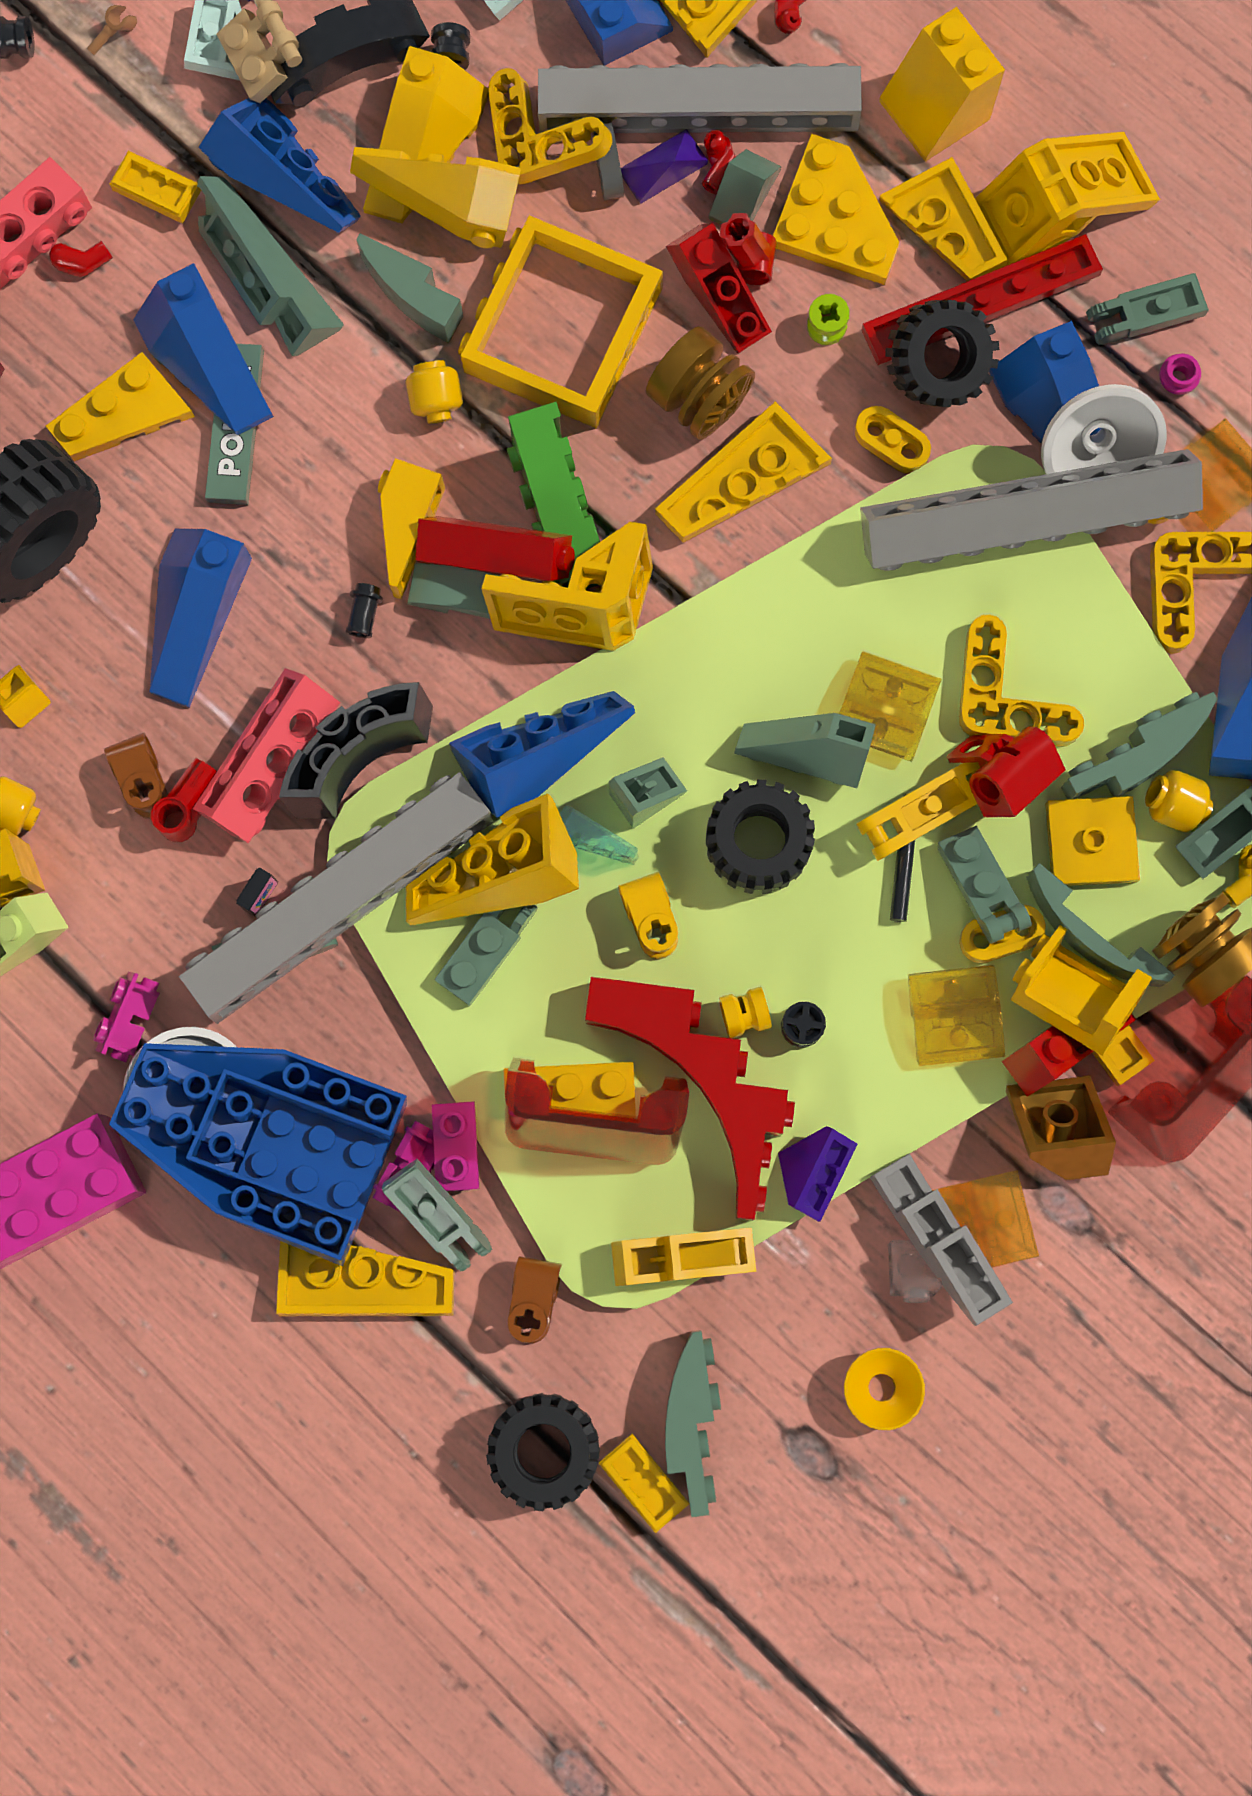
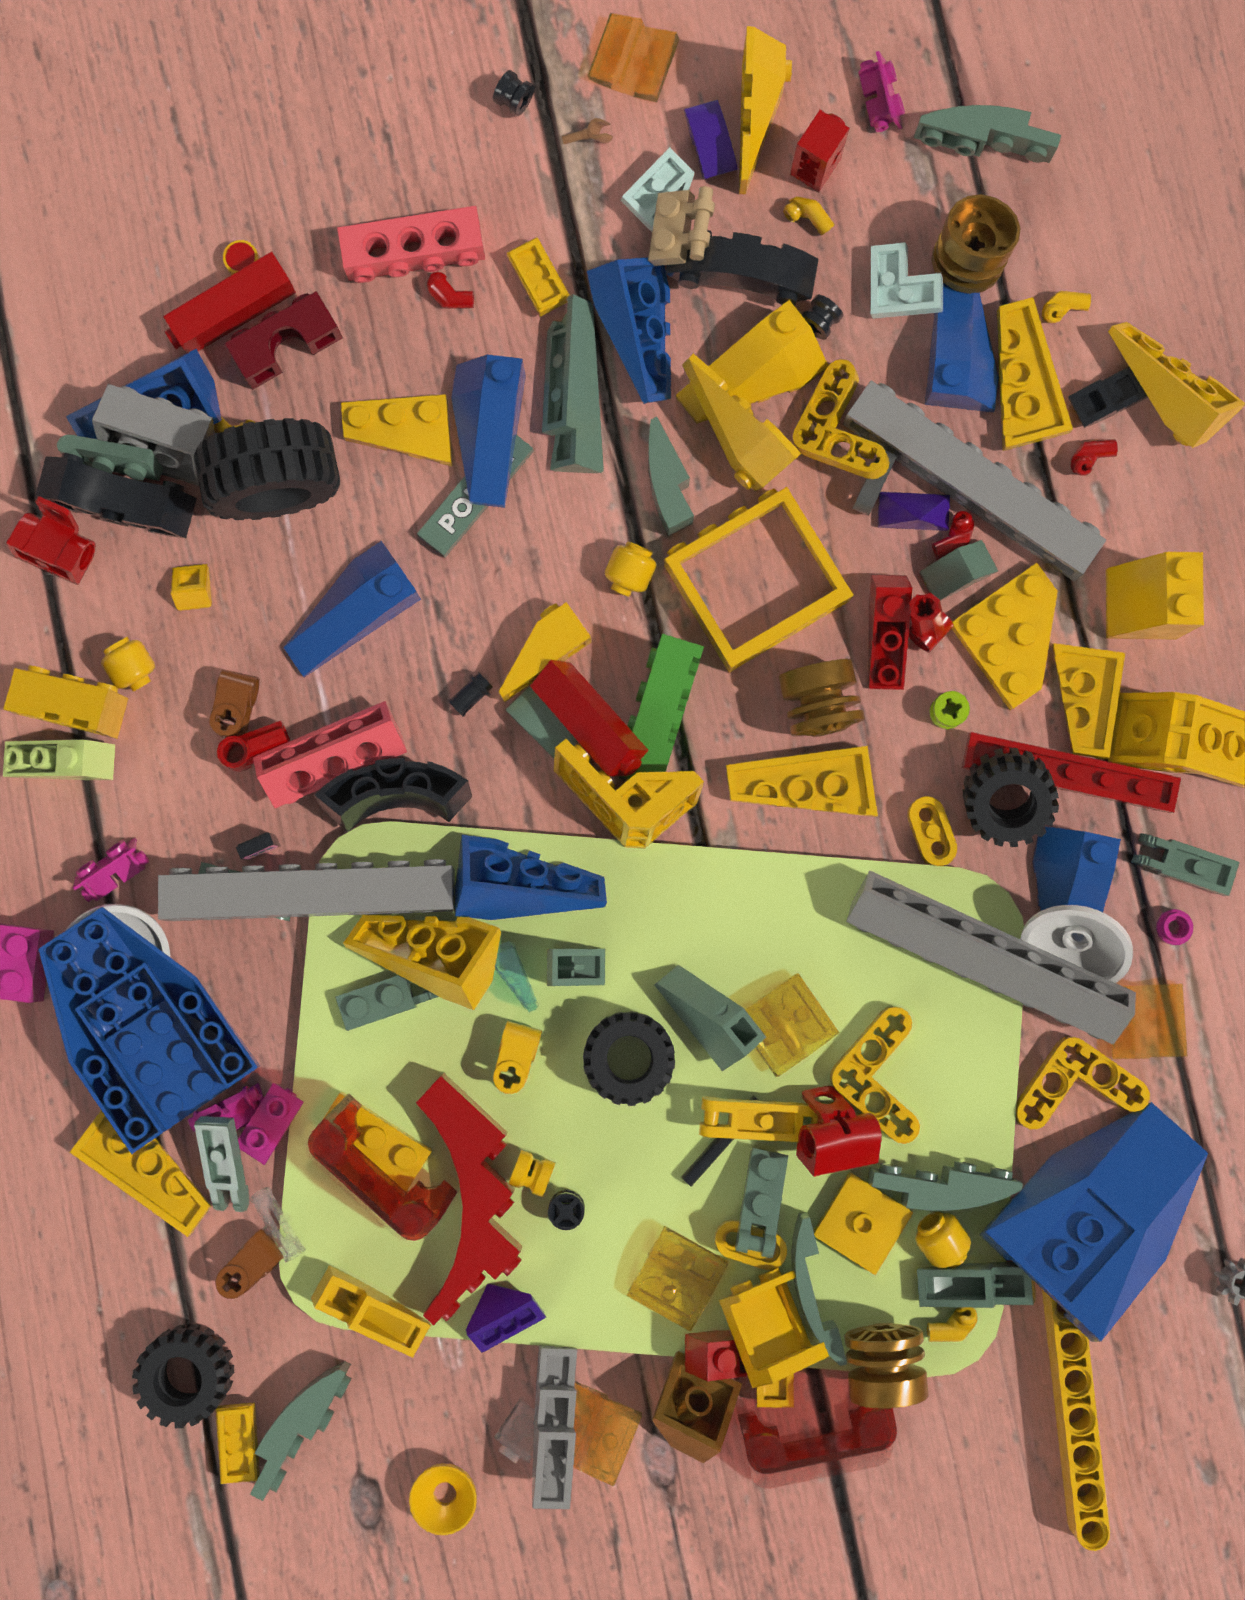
camera: 30 degrees right, 5 degrees up
(520, 1236) = (264, 1203): none -> clear pin

